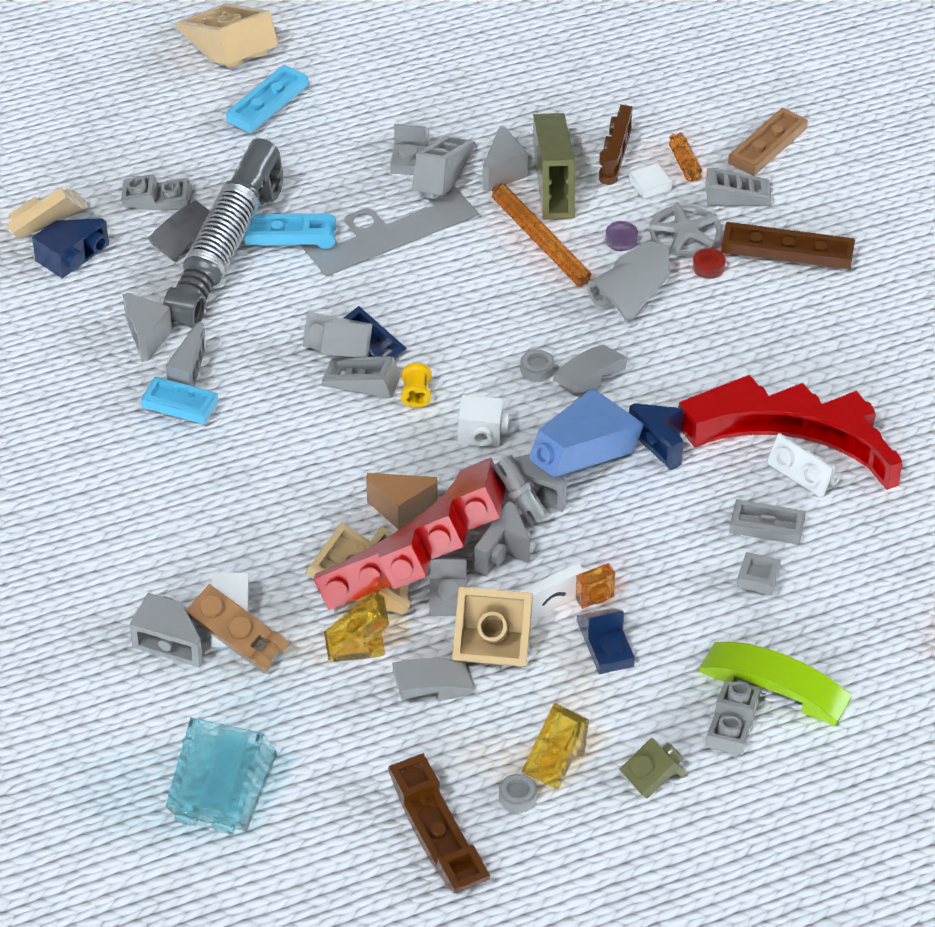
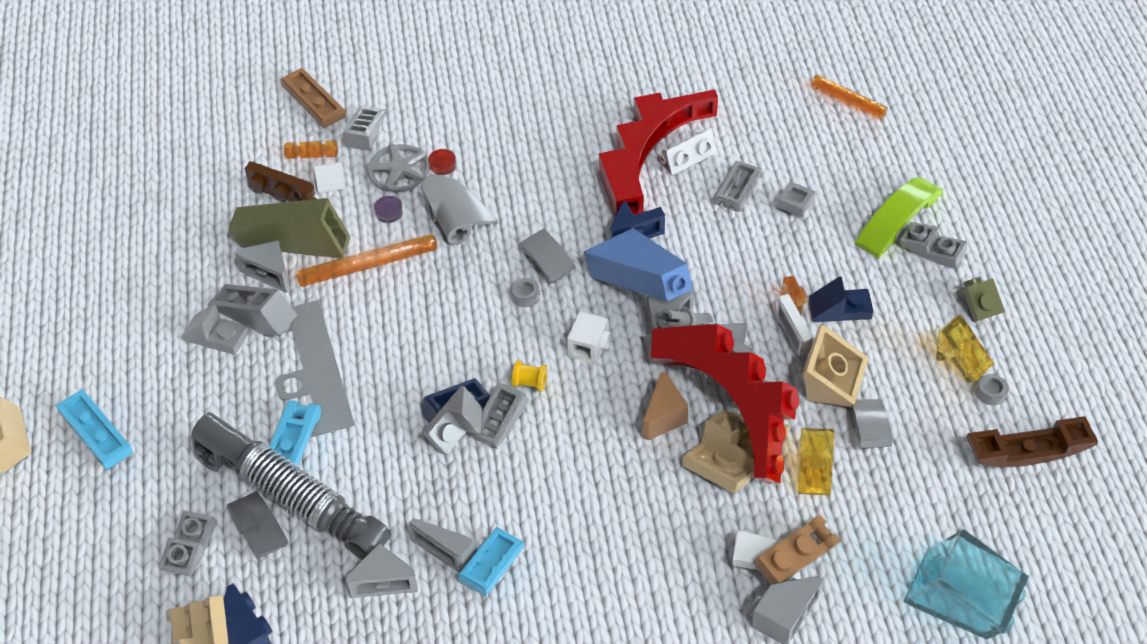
camera: 75 degrees left, 5 degrees up
(788, 245) = (444, 109): reddish brown plate -> none

